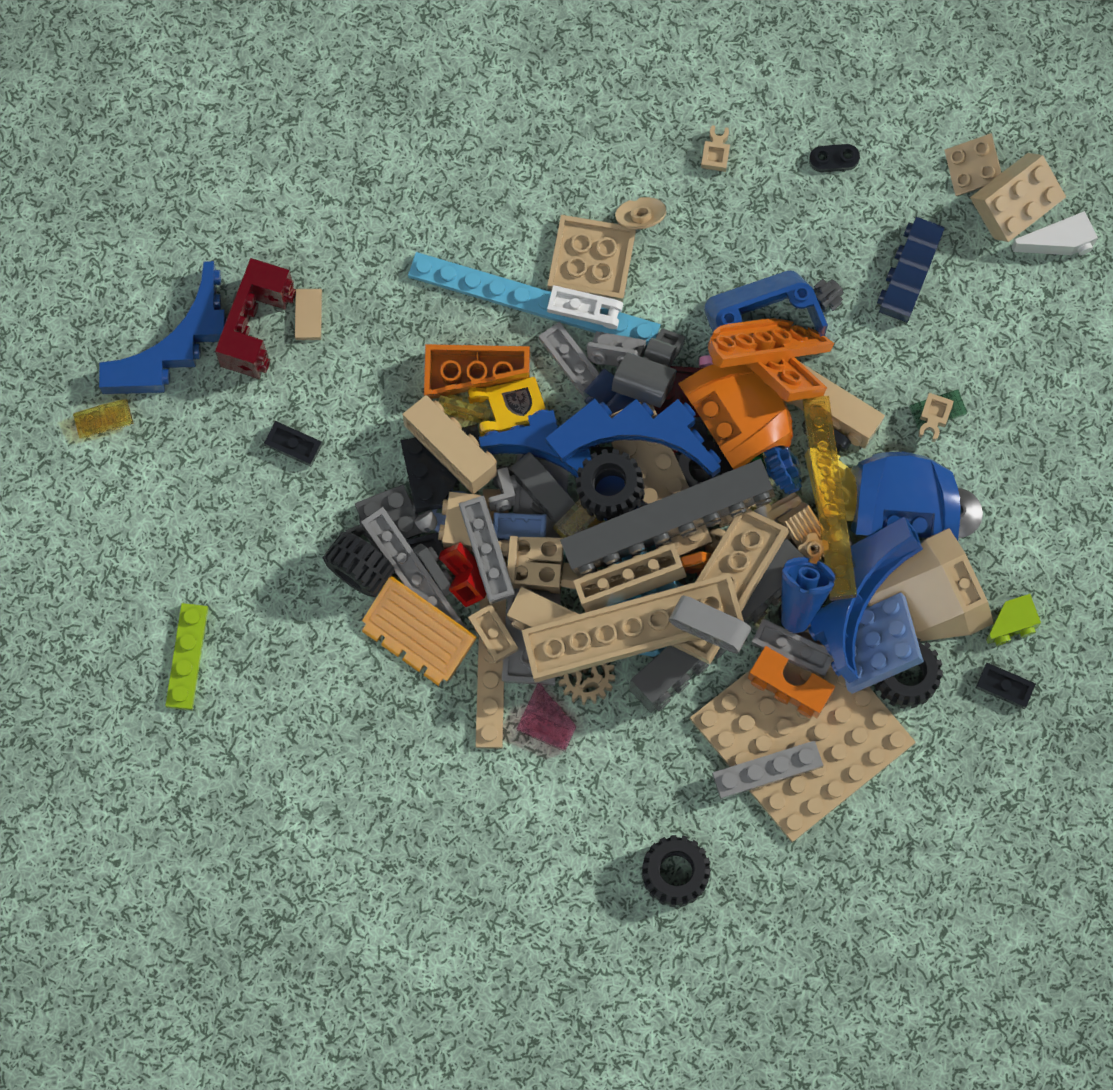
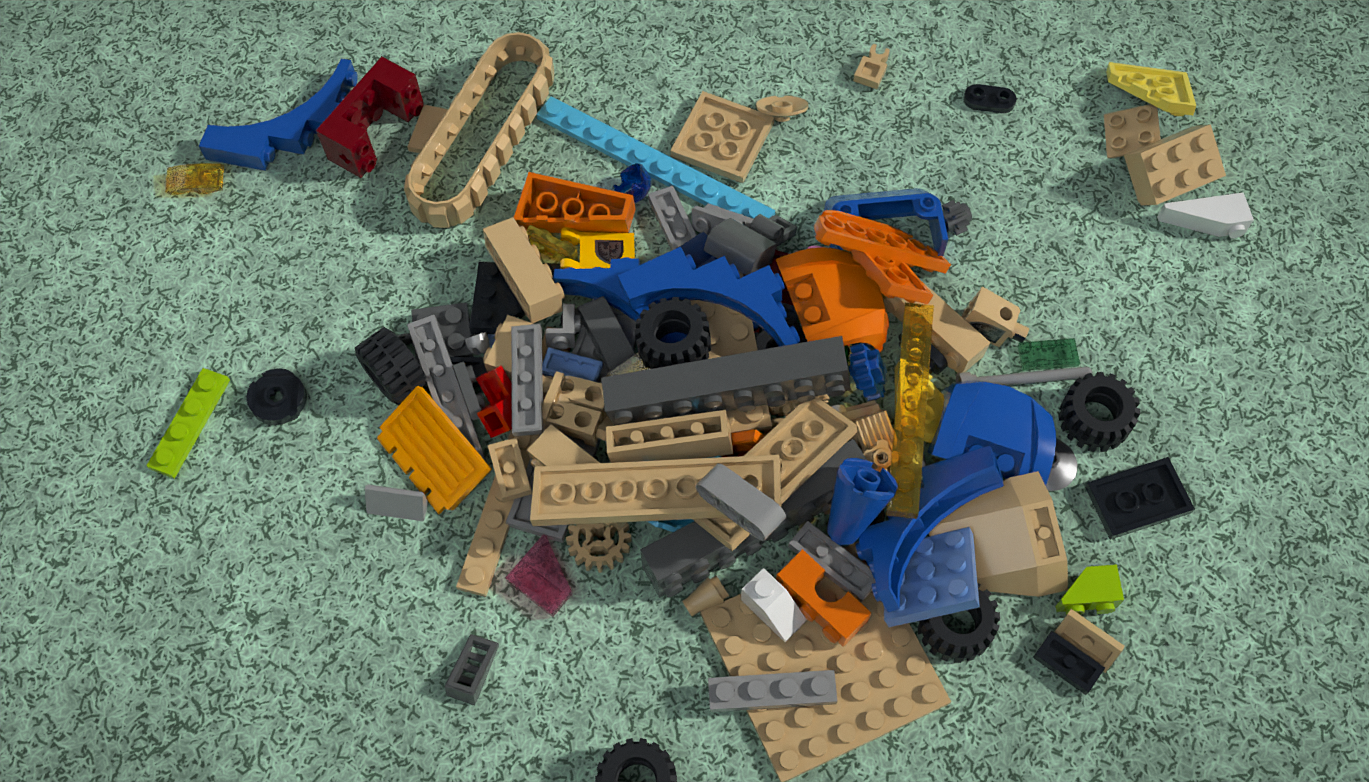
camera: 15 degrees right, 10 degrees down
(245, 608) = (277, 412): none -> black plate
(293, 443) = (371, 242): black plate -> none
(356, 218) = (501, 52): none -> tan piece
(399, 686) = (395, 502): none -> light grey slope
(510, 834) = (471, 694): none -> dark grey slope
(525, 322) = (637, 179): none -> clear blue hair
(584, 306) = (701, 174): white plate -> none
(691, 702) = (706, 595): none -> tan cone
(751, 698) = (773, 605): none -> white slope
(883, 390) = (994, 318): none -> tan torso
(911, 269) = (1047, 212): dark blue brick -> none
(914, 440) = (1027, 377): none -> light grey piece
(935, 413) = (1044, 354): tan plate -> none
(981, 474) = (1089, 429): none -> black tyre
(987, 113) = (1159, 87): none -> light yellow plate
(1018, 662) = (1089, 639): none -> tan plate
(1039, 527) = (1139, 498): none -> black plate

